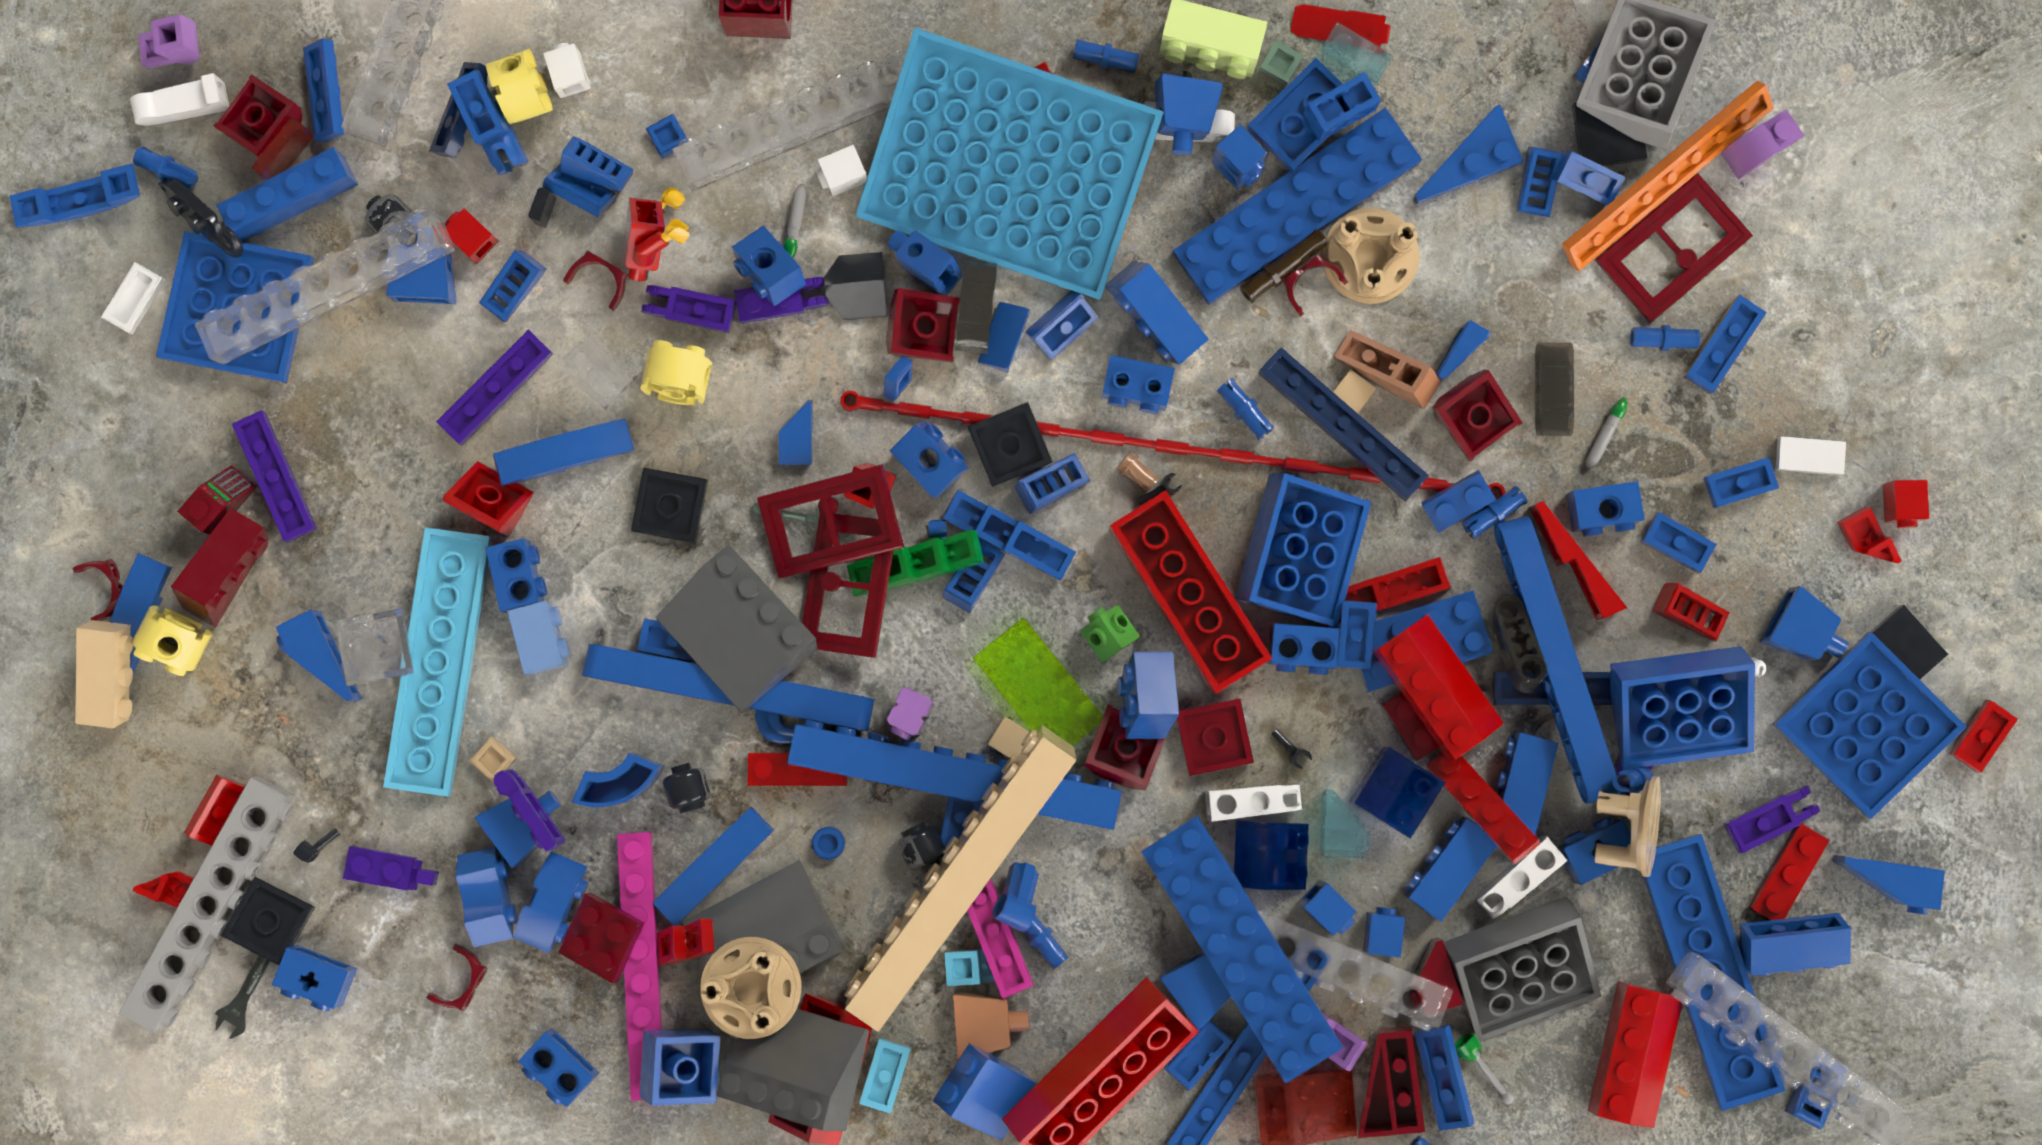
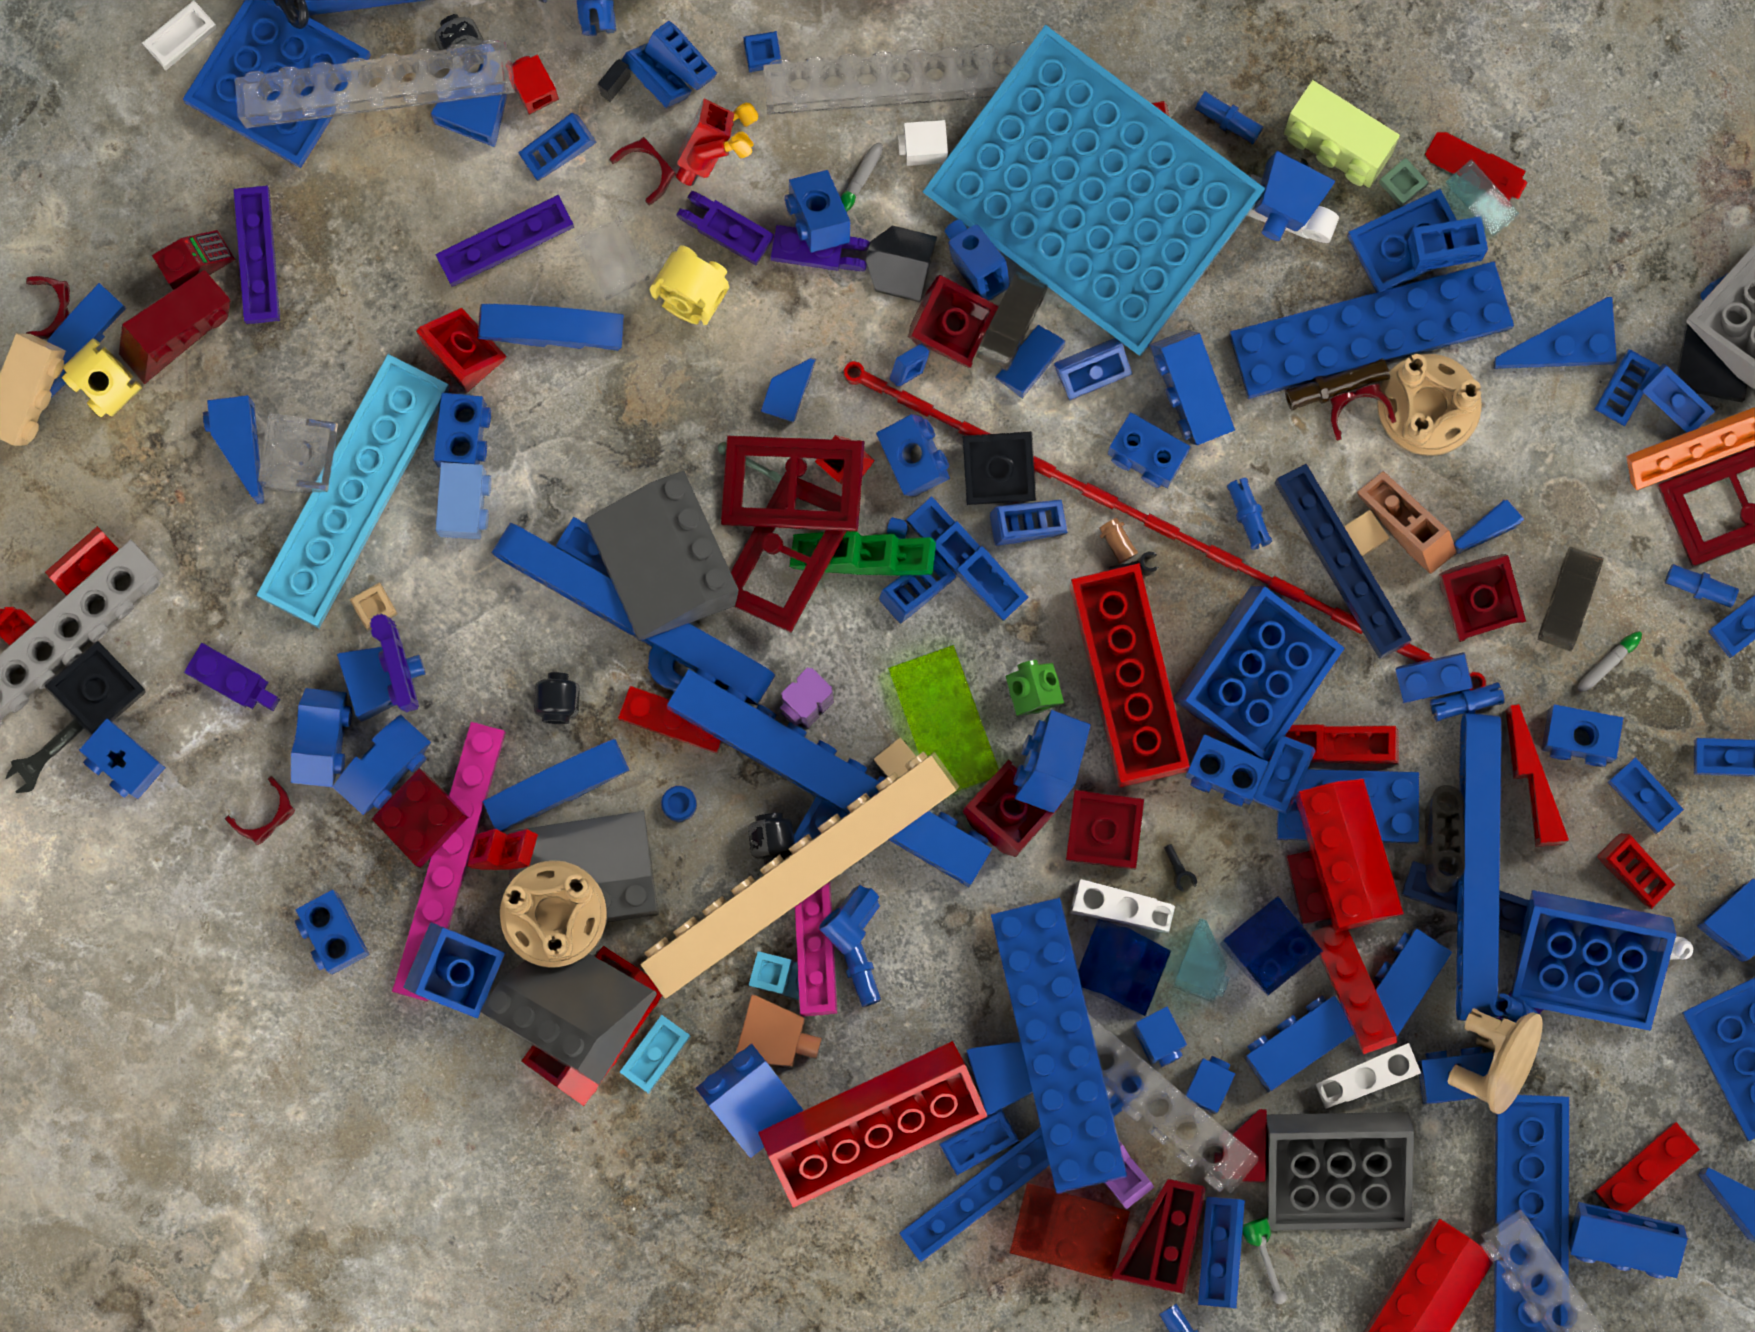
camera: 20 degrees right, 5 degrees down
(308, 852) = (159, 636): black hand -> none
(620, 784) = (492, 671): blue brick -> none
(669, 505) = (637, 415): black tile -> none
(1239, 158) = (1327, 261): blue brick -> none
(1768, 820) = (1643, 1107): dark purple hinge -> none

